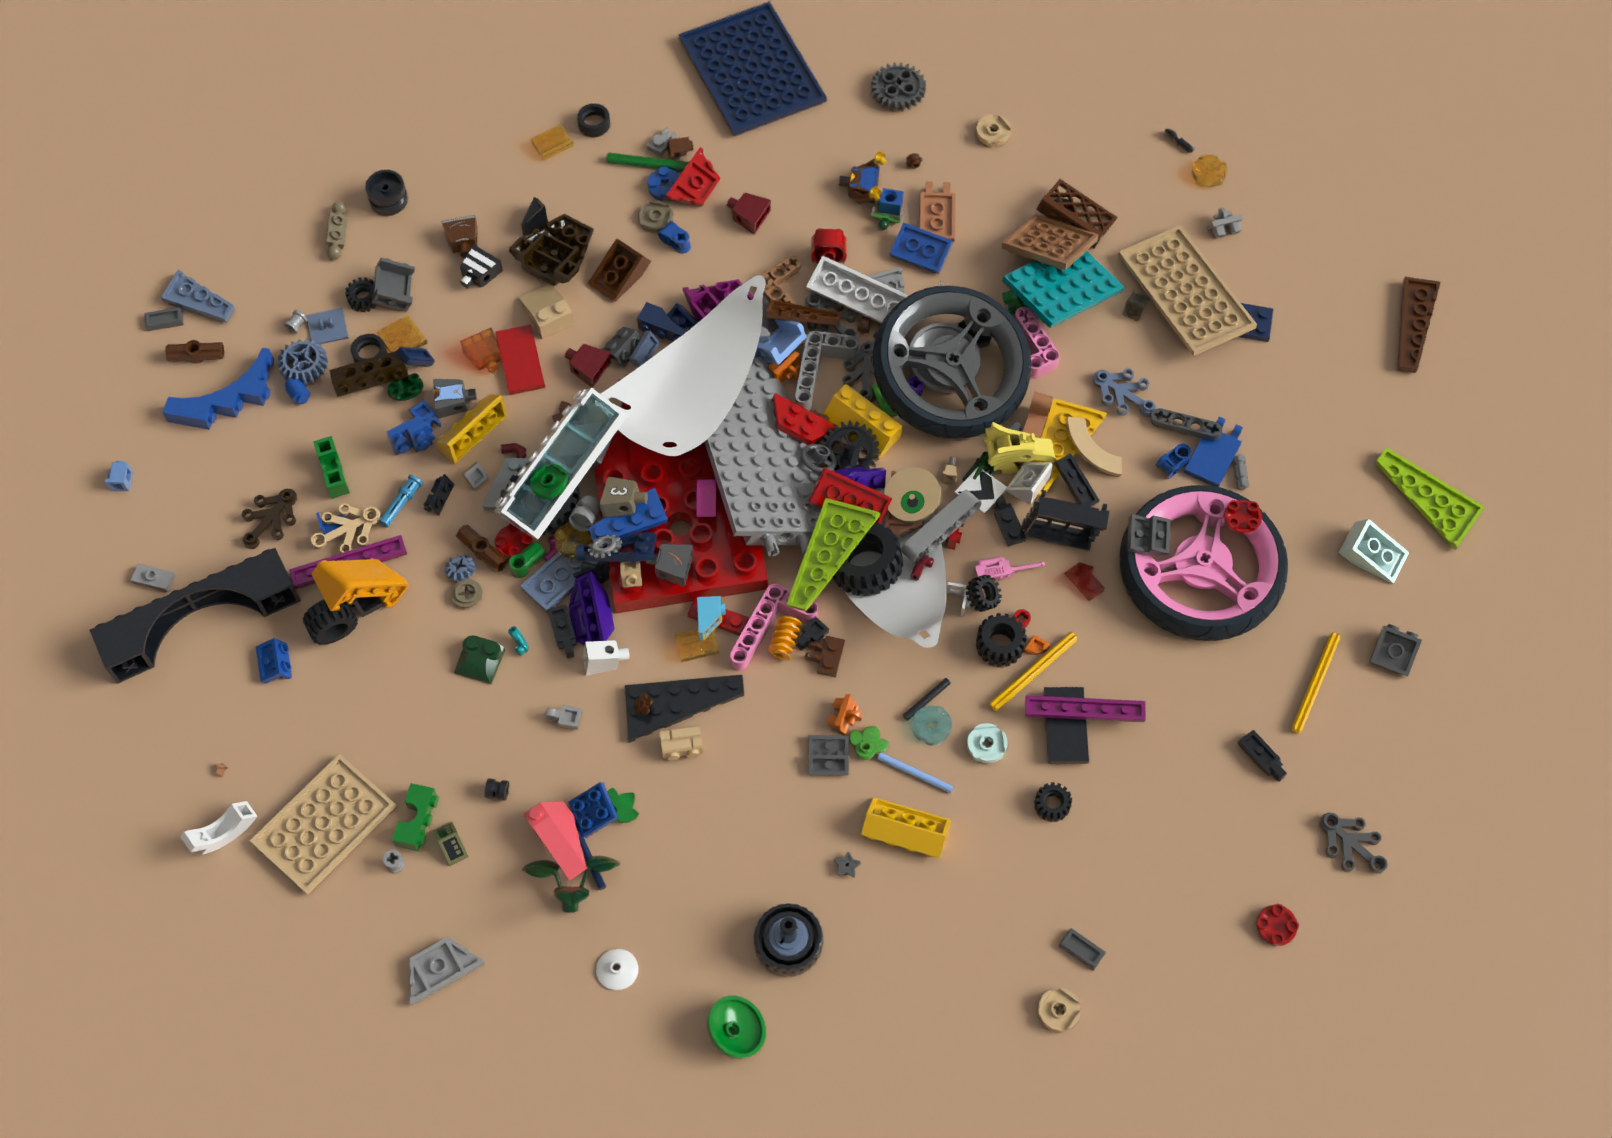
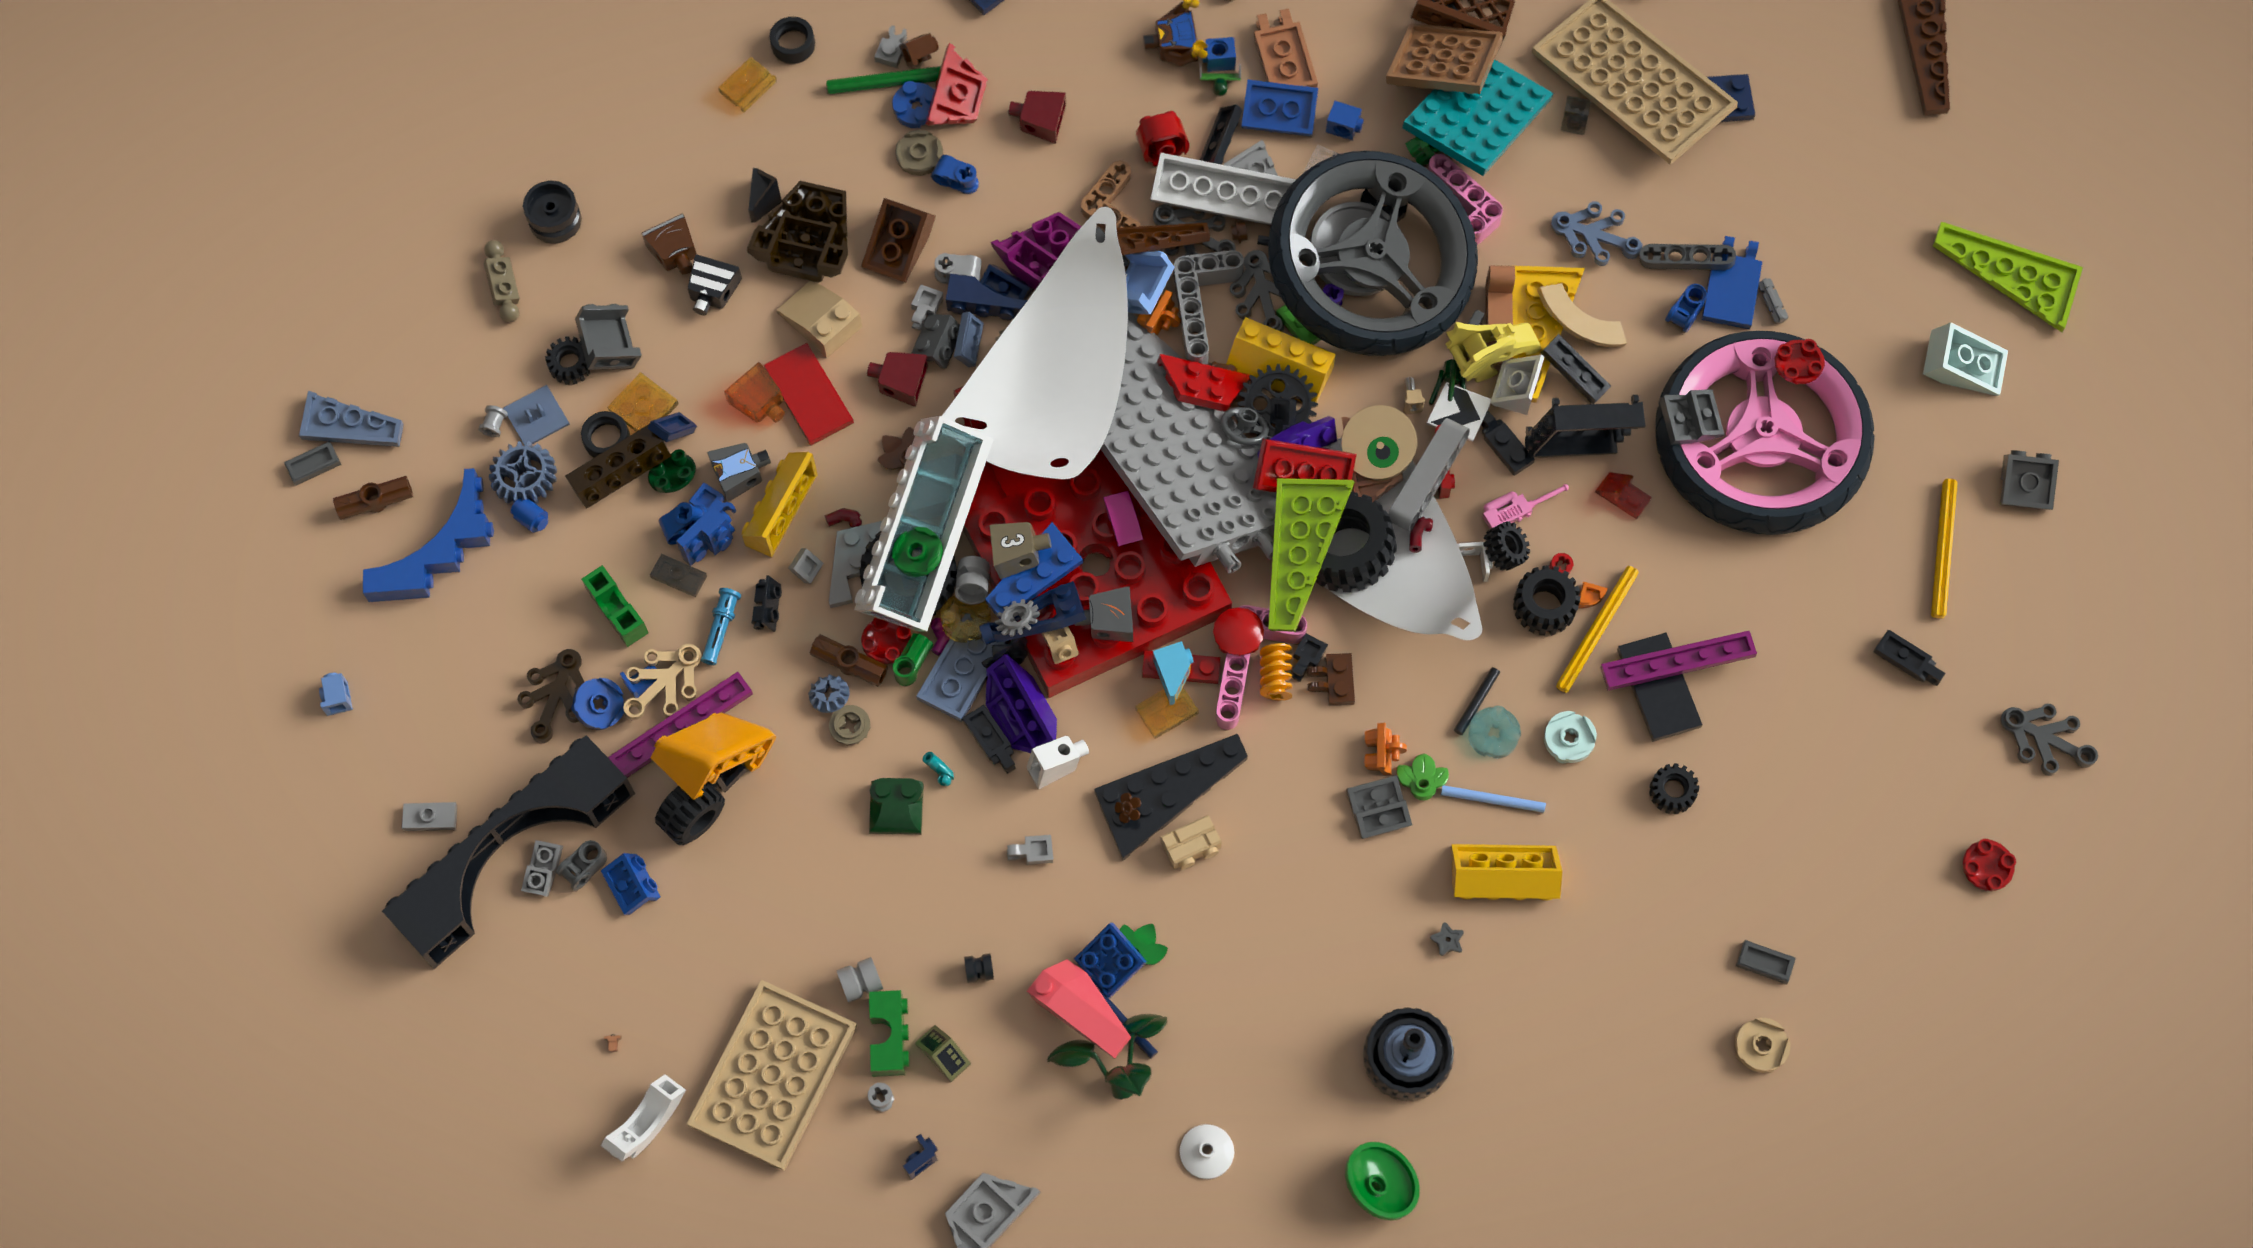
camera: 15 degrees left, 5 degrees up
(217, 634) = (542, 868): none -> light grey slope
(243, 639) = (581, 866): none -> dark grey piece
(297, 520) = (584, 707): none -> blue plate
(385, 459) = (678, 575): none -> clear smoke plate
(396, 418) = (680, 520): none -> blue piece
(407, 915) = (918, 1162): none -> dark blue bracket
(408, 773) = (859, 979): none -> light grey wheel
(622, 318) = (925, 302): none -> light grey plate
(654, 297) = (956, 264): none -> light grey piece
(765, 601) = (1238, 631): none -> red dish
(873, 256) = (1221, 134): none -> black plate
(965, 268) = (1344, 120): none -> blue brick

